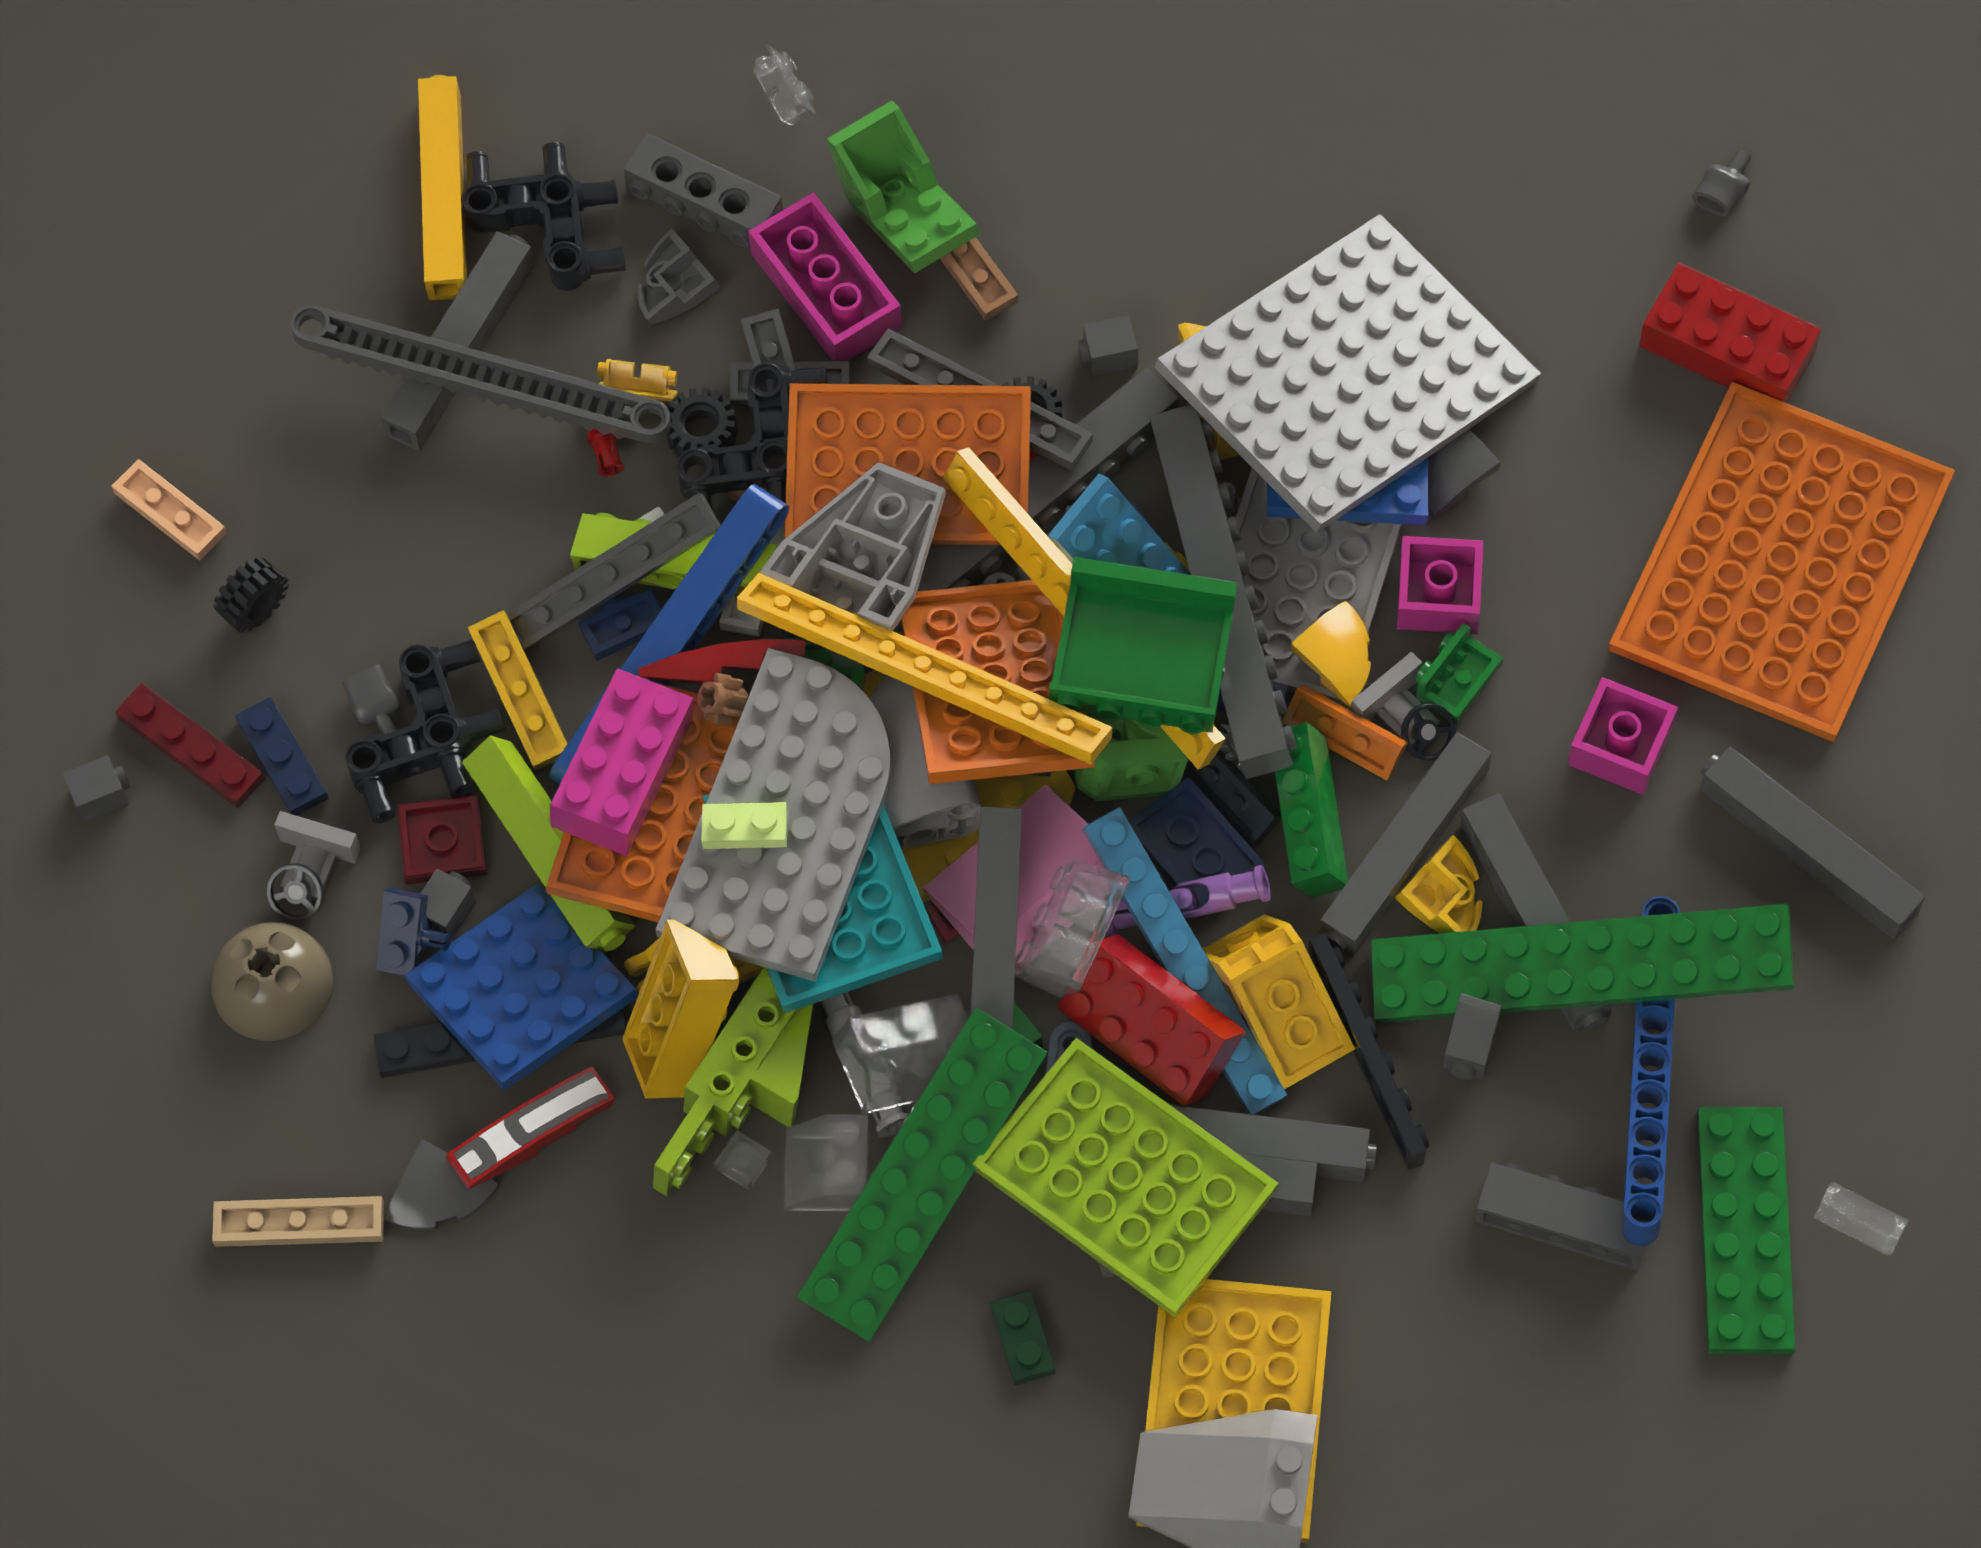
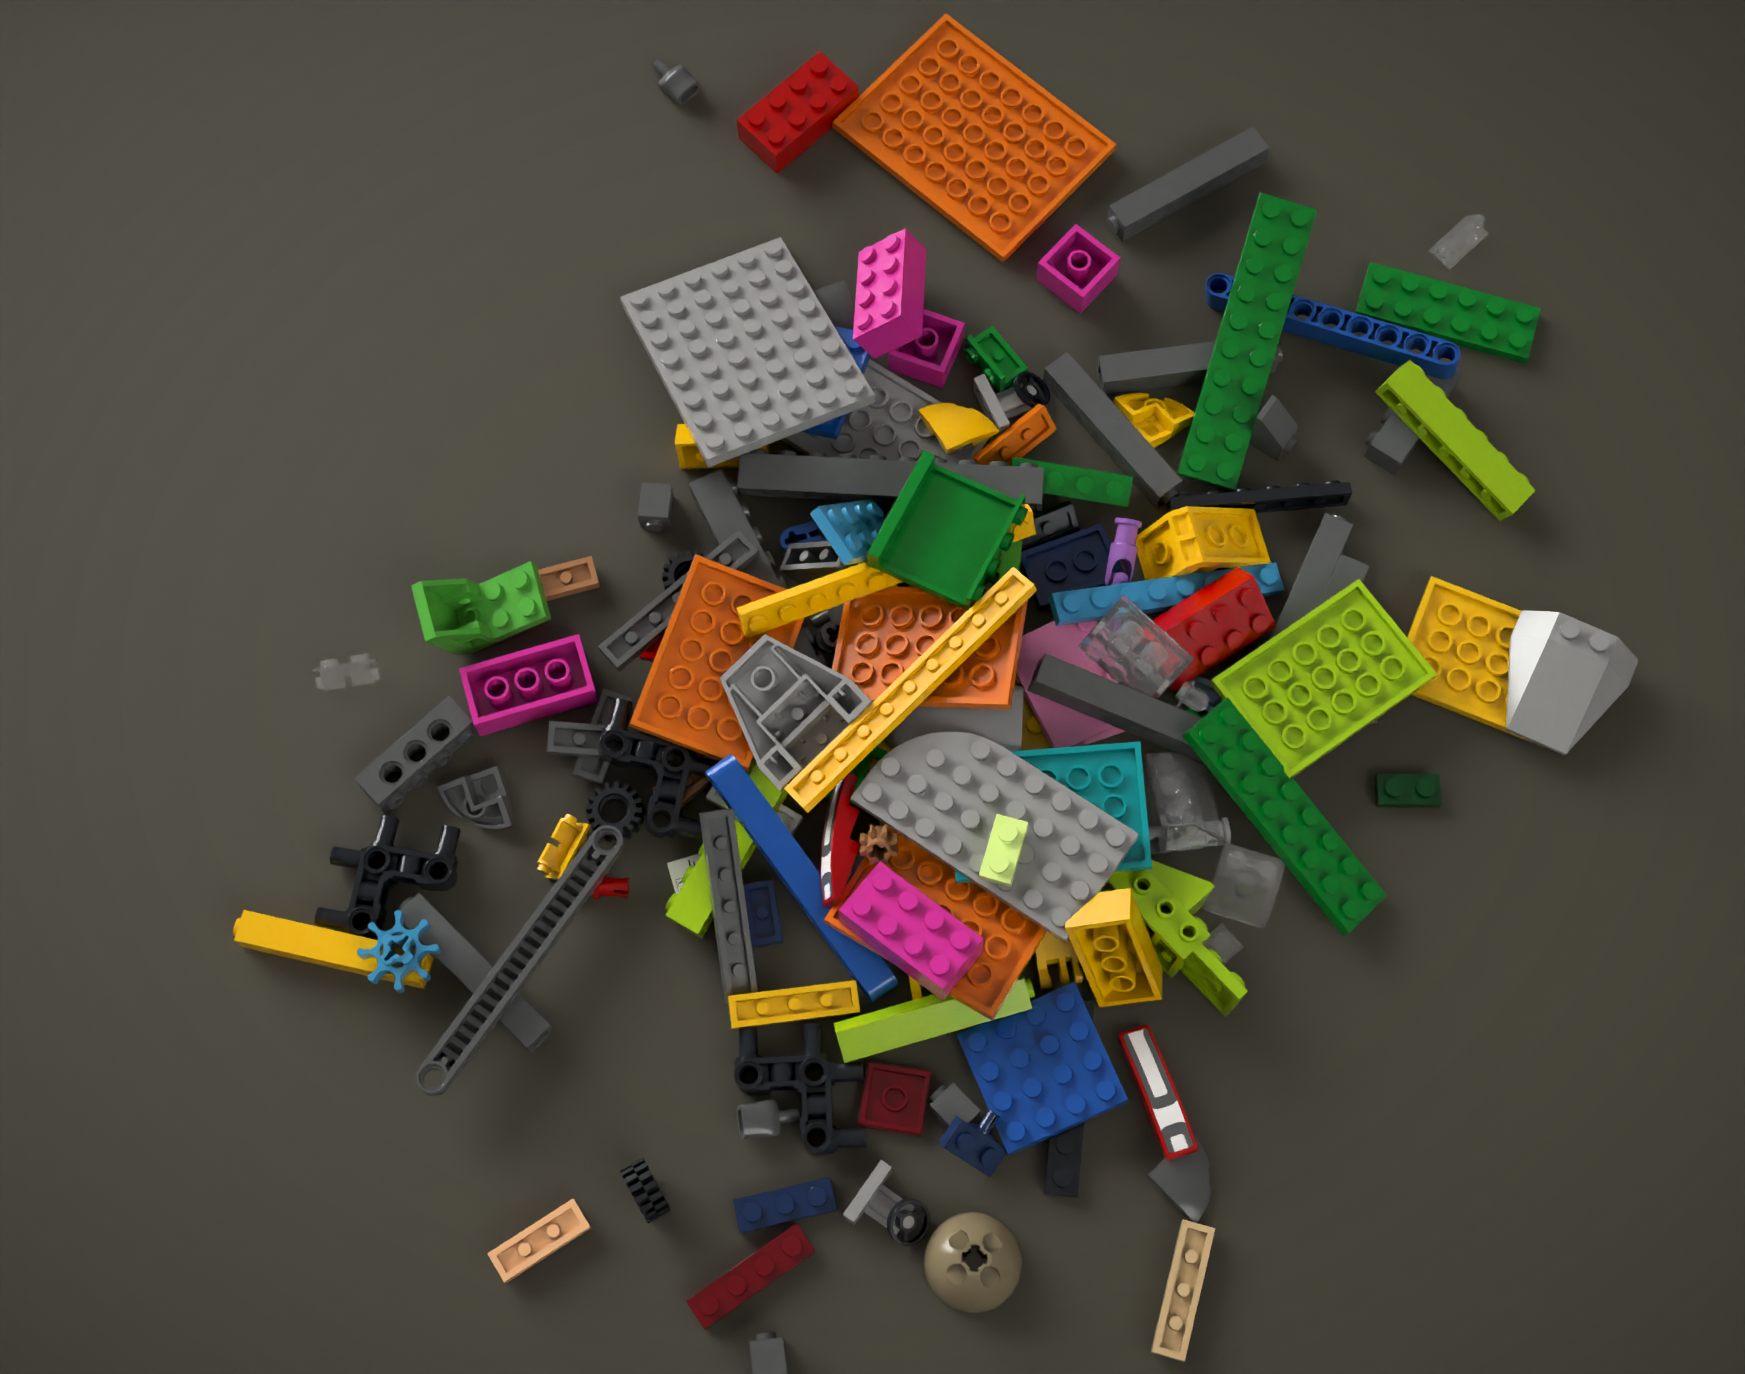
camera: 75 degrees left, 5 degrees up
(449, 244) = (392, 963): none -> dark azure gear
(1045, 1020) = (1192, 696): none -> clear hinge
(1486, 510) = (890, 293): none -> dark pink brick
(1531, 1265) = (1455, 440): none -> lime brick

